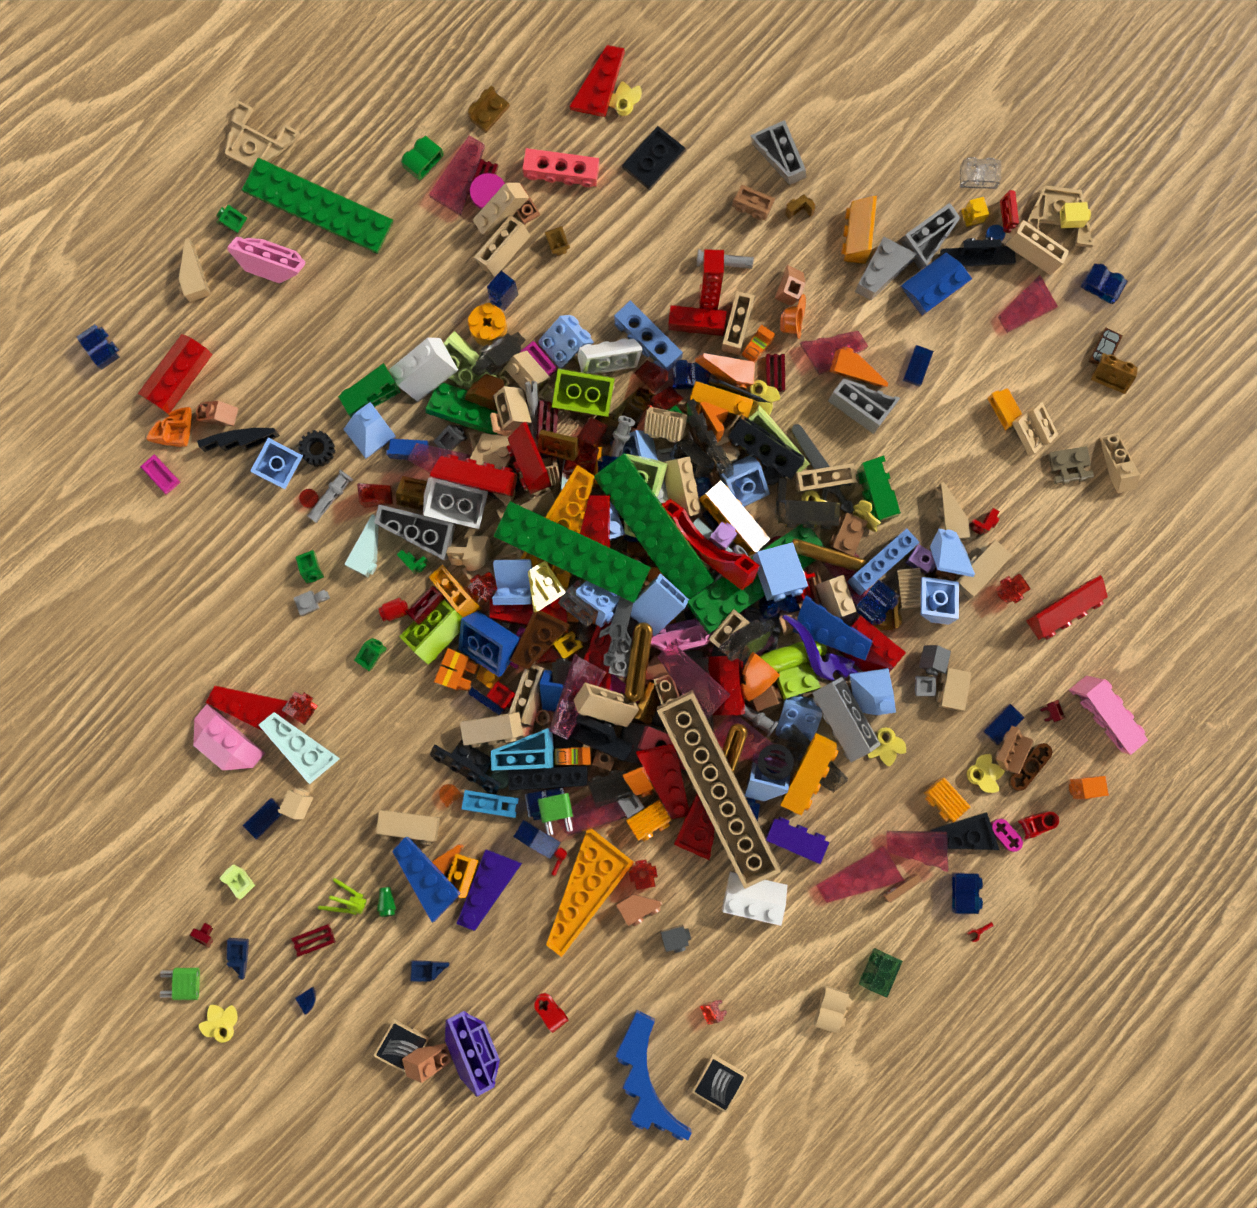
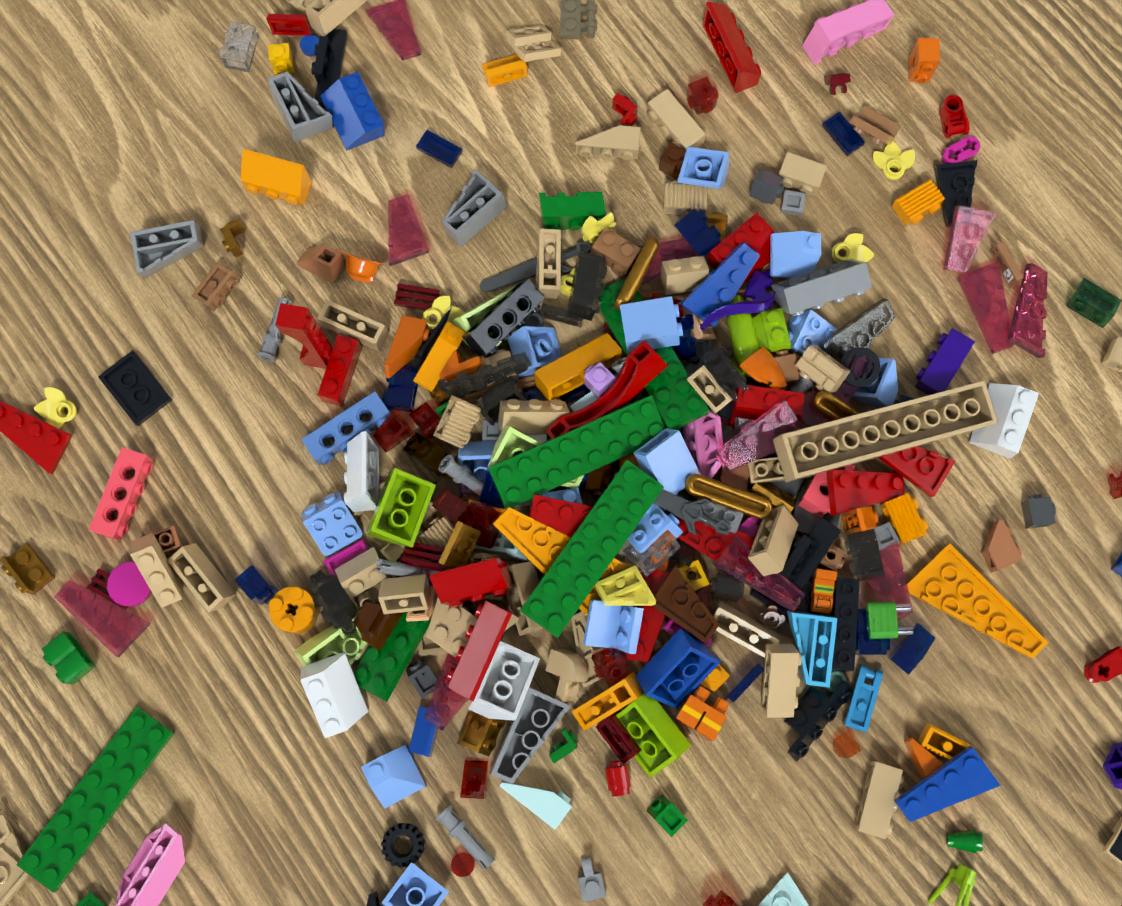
camera: 80 degrees left, 5 degrees down
(309, 567) = (548, 876): green bracket -> none
(373, 388) = (345, 767): green wedge -> none
(426, 970) = (1047, 803): dark blue slope -> none
(489, 882) = (954, 714): dark purple wing -> none
(501, 695) = (740, 663): red bracket -> none
(549, 691) = (750, 603): blue panel -> none
(557, 241) = (209, 513): pearl gold bracket -> none
(561, 855) = (931, 625): red hand -> none
(643, 882) = (965, 534): clear red brick -> none
(758, 344) = (381, 309): orange leg -> none
(767, 728) = (822, 369): none -> tan brick
(809, 773) = (875, 333): light orange brick -> none
(855, 367) = (430, 209): orange slope -> none
(858, 913) = (1027, 321): none -> clear pink wing
(883, 562) = (653, 218): medium blue brick -> none
(885, 265) = (323, 162): light grey wedge -> none
(921, 559) = (654, 181): lavender brick -> none
(950, 553) = (657, 147): light blue slope -> none
(966, 893) = (1018, 201): clear blue brick -> none
(979, 931) = (1057, 204): red hand -> none
(1034, 752) = (906, 123): reddish brown beam -> none

